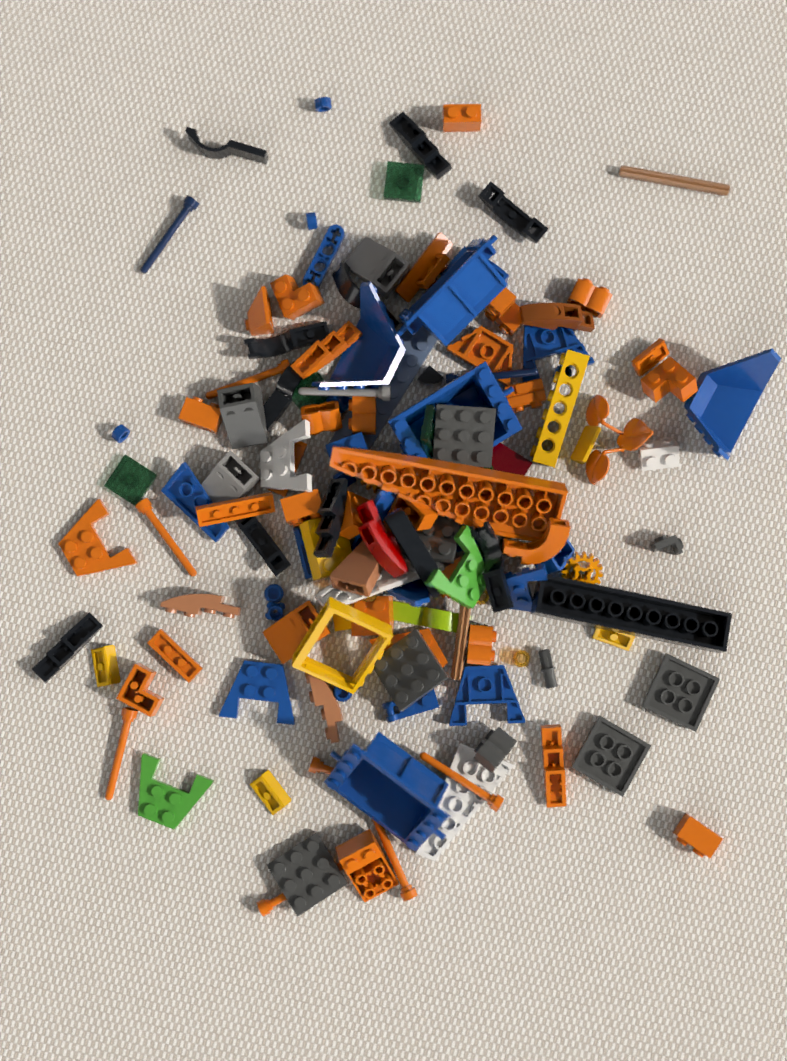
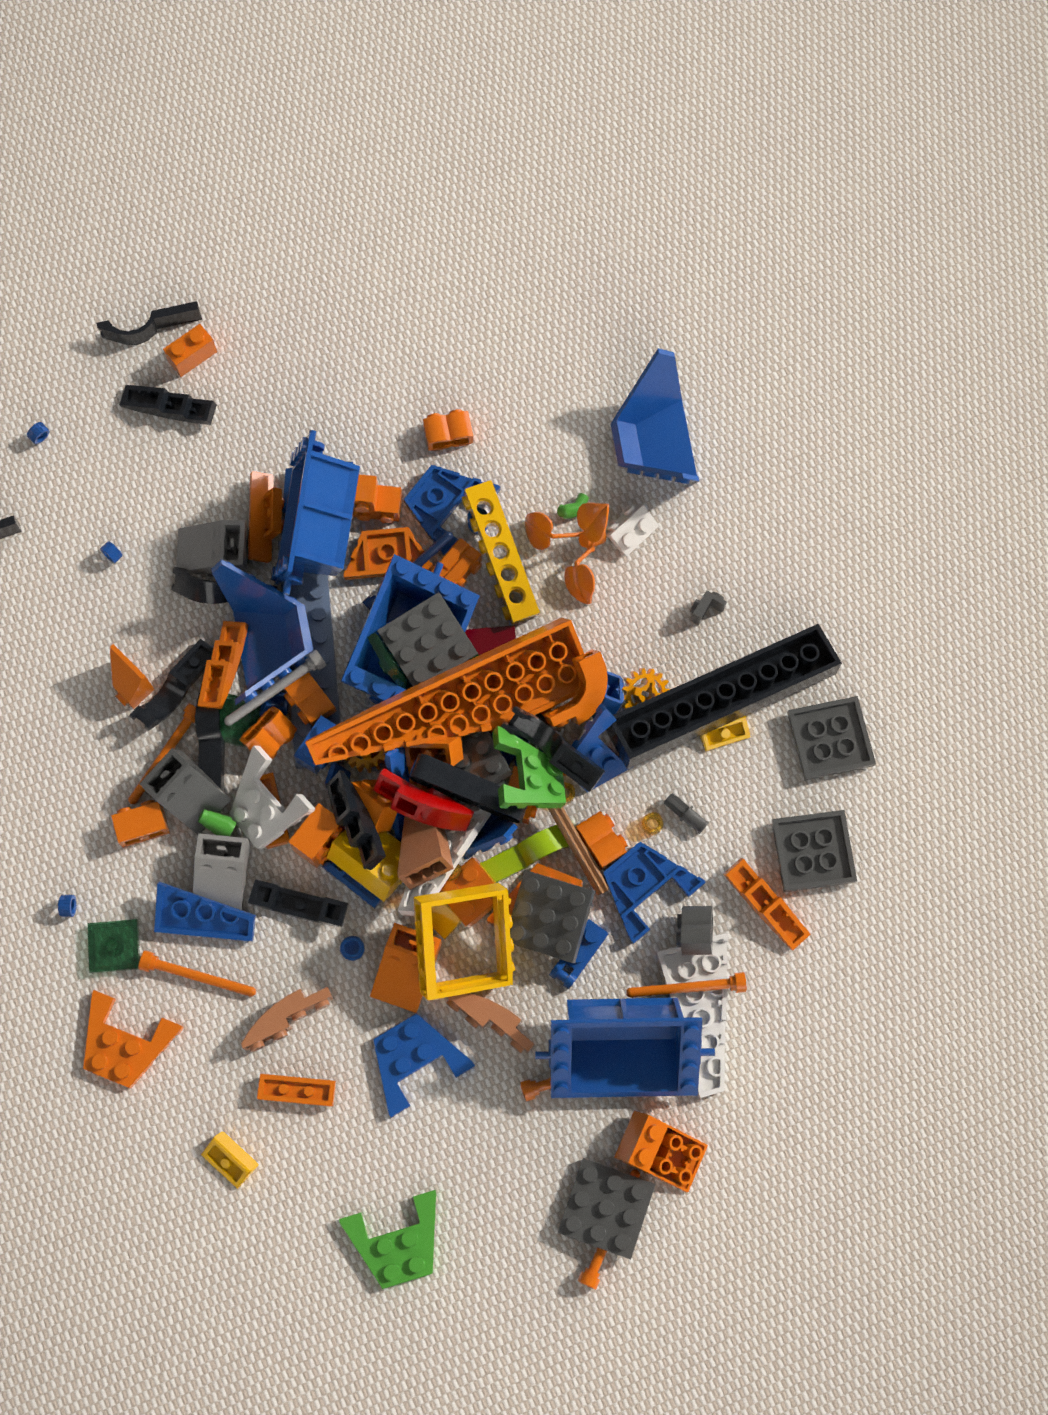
camera: 45 degrees left, 10 degrees down
(67, 647) = (174, 1171): black slope -> none
(129, 715) = (294, 1192): orange piece -> none
(136, 692) = (282, 1157): orange brick -> none
(235, 509) = (248, 889): orange plate -> none
(248, 451) = (217, 823): none -> bright green cone
(270, 615) = (360, 962): blue plate -> none
(270, 792) = (504, 1155): yellow slope -> none
(295, 300) = (152, 640): orange brick -> none
(321, 257) = (154, 579): blue beam -> none
(341, 695) = (500, 995): blue plate -> none
(404, 182) = (178, 450): clear green plate -> none
(407, 891) = (720, 1143): orange piece -> none
(430, 376) = (348, 617): black tile -> none
(456, 81) = (158, 319): none -> black piece
(511, 214) = (310, 406): black slope -> none
(557, 314) = (428, 466): dark orange slope -> none
(585, 444) = (552, 570): yellow slope -> none
(630, 413) = (570, 510): none -> bright green arm
(650, 357) = (550, 444): orange plate -> none
(667, 378) = (583, 449): orange brick -> none
(674, 180) = (443, 267): medium nougat axle -> none
(697, 835) = (958, 863): orange brick -> none

